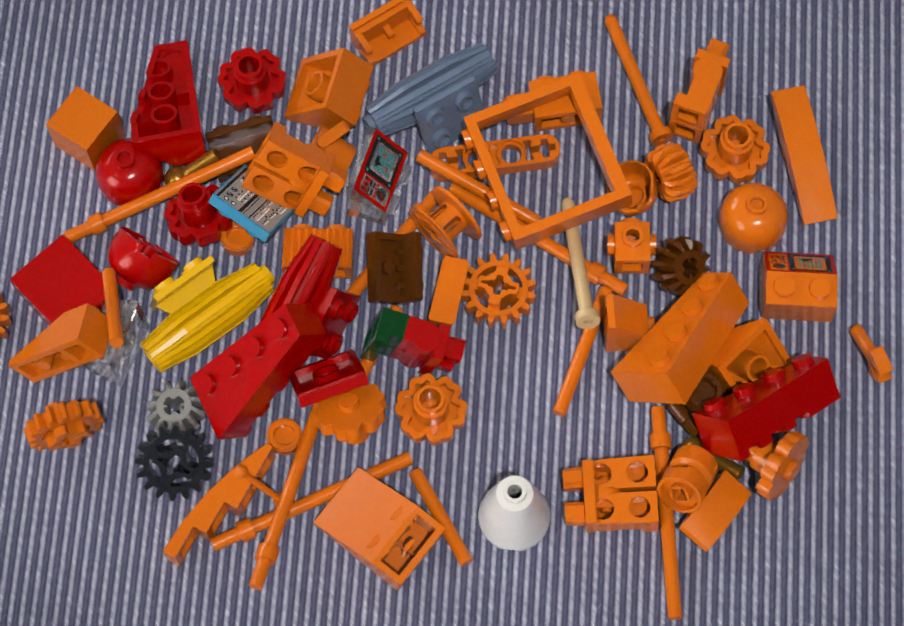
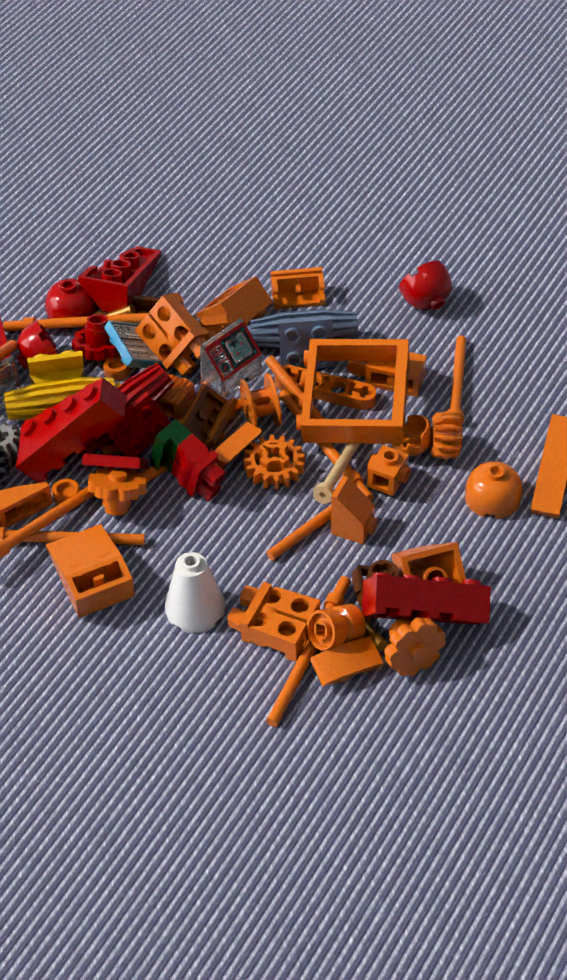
camera: 25 degrees right, 20 degrees down
(84, 127) = (56, 262): orange head -> none
(241, 472) = (13, 485): orange hinge -> none
(252, 80) = (189, 281): red plant -> none
(431, 409) = (178, 514): orange plant -> none
(439, 514) = (140, 608): orange bar -> none
(680, 264) = (425, 500): reddish brown gear -> none
(682, 342) = (387, 535): orange wedge -> none
(708, 79) = (497, 396): orange hips -> none
(734, 149) = (505, 442): orange plant -> none
(799, 286) = (500, 547): orange slope -> none
(877, 358) = (534, 610): orange bar -> none

